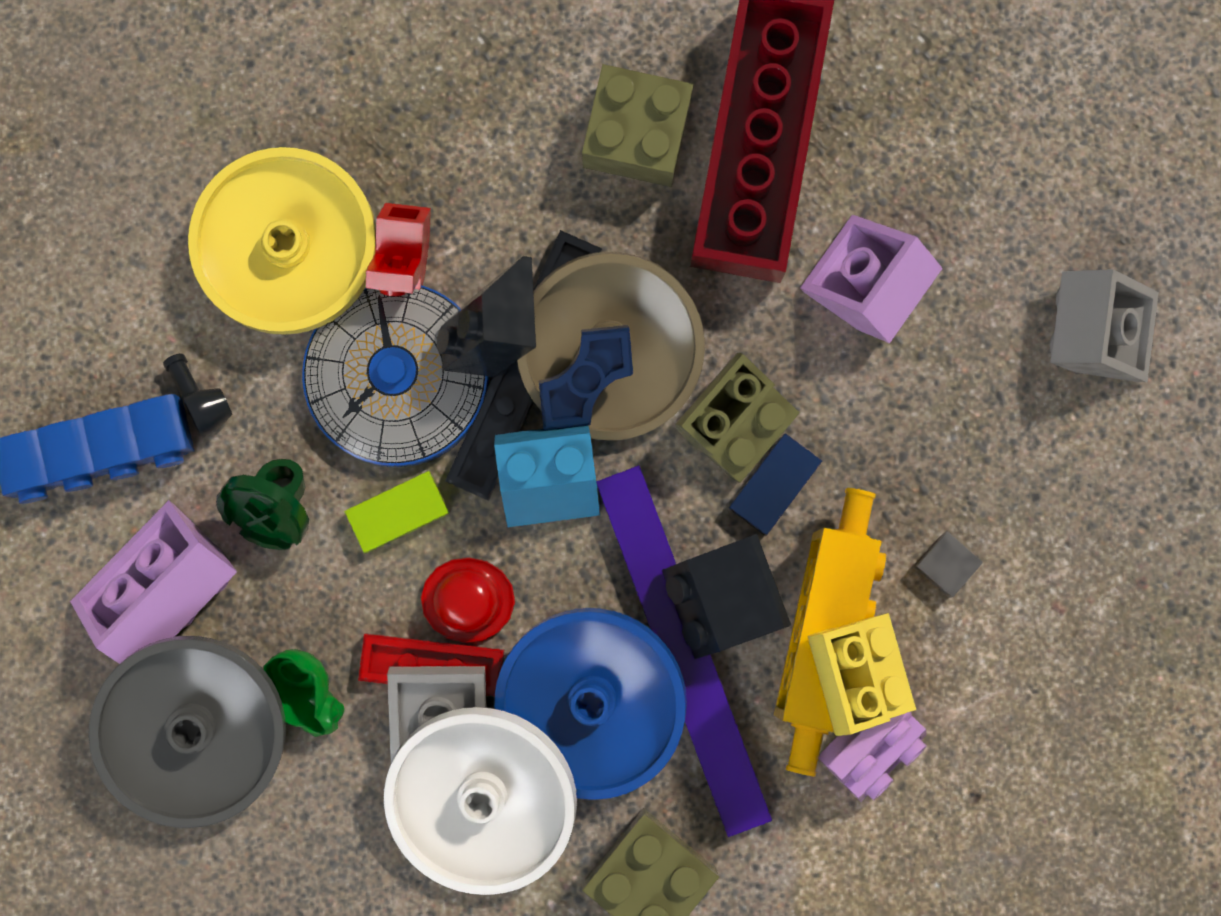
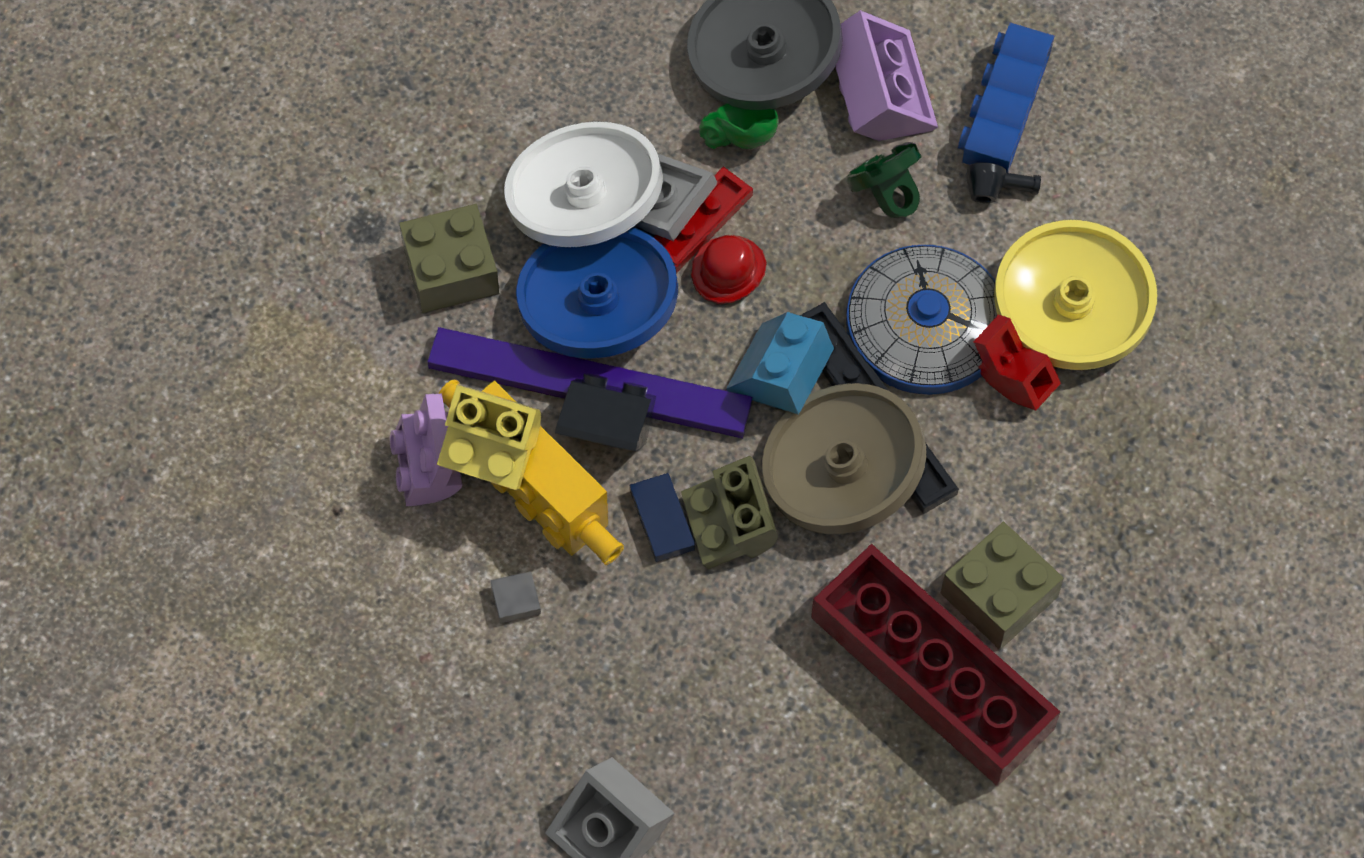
camera: 120 degrees right, 20 degrees down
(397, 512) = (824, 260): lime tile -> none
(492, 326) = (917, 380): black slope -> none
(600, 360) = (836, 437): dark blue tile -> none
(872, 277) = (767, 677): lavender slope -> none

